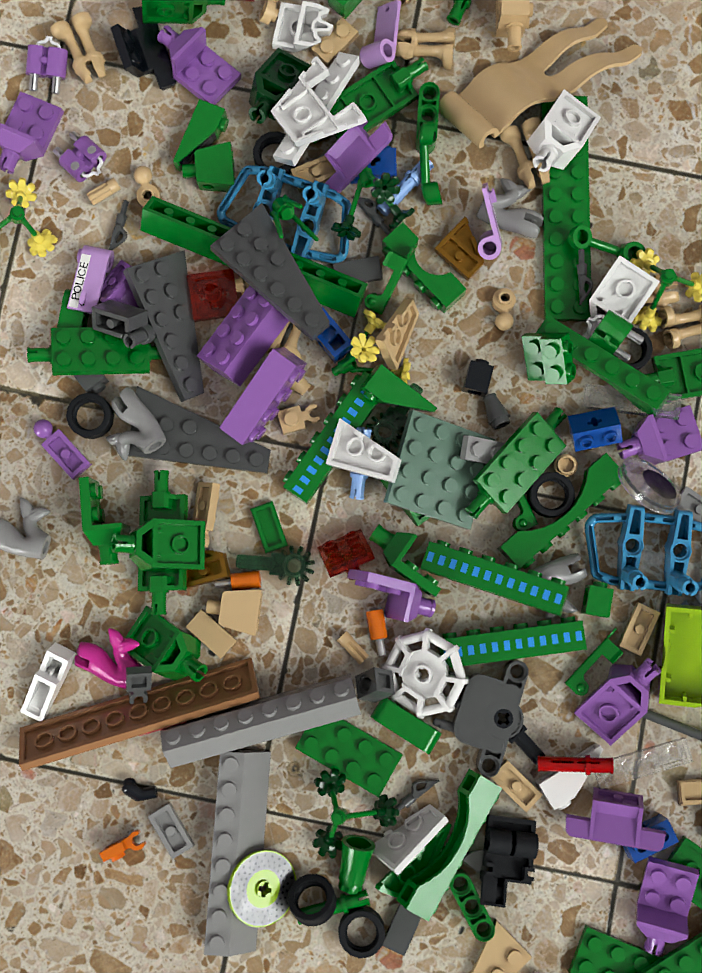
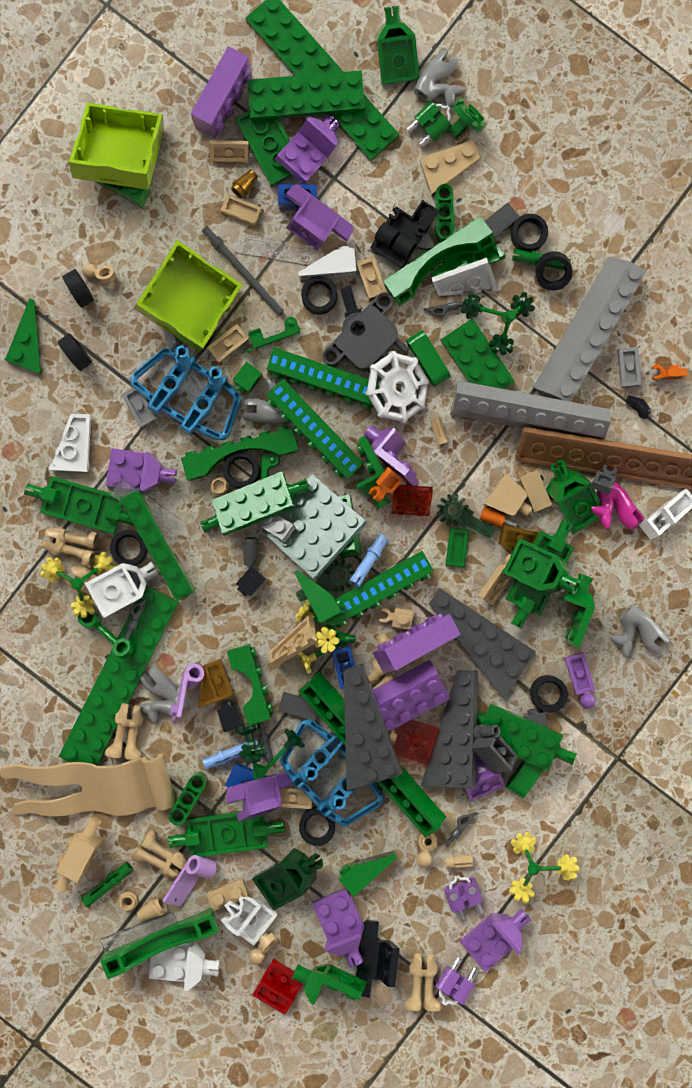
camera: 150 degrees left, 5 degrees up
(89, 277) = (501, 797): lavender door -> none
(134, 412) = (516, 680): light grey piece -> none
(212, 168) = (369, 838): green torso -> none
(256, 870) = (585, 310): piece -> none
(284, 209) = (332, 775): green plant -> none
(304, 114) = (283, 842): white wing -> none
(328, 92) = (268, 845): white plate -> none
(354, 862) = (511, 281): green plant -> none
(361, 455) = (366, 564): white wing -> none
(374, 684) = (437, 396): dark grey brick -> none
(377, 629) = (415, 435): orange piece -> none
(384, 555) = (386, 483): none -> orange plate
(398, 264) = (268, 695): green piece -> none
(426, 224) = (230, 716): none -> black brick
(429, 190) = (213, 740): green piece -> none
(504, 319) = (209, 615): tan plate -> none
(549, 357) = (192, 569): plate -> none
(562, 132) = (95, 734): white plate -> none
(576, 764) = (324, 271): red pin -> none
(584, 735) = (315, 281): none -> black tyre
(595, 429) = (185, 501): blue brick -> none
(611, 333) = (139, 563): green piece -> none
(619, 700) = (268, 301): medium lavender plate -> none
(649, 485) = (168, 440): clear piece -> none

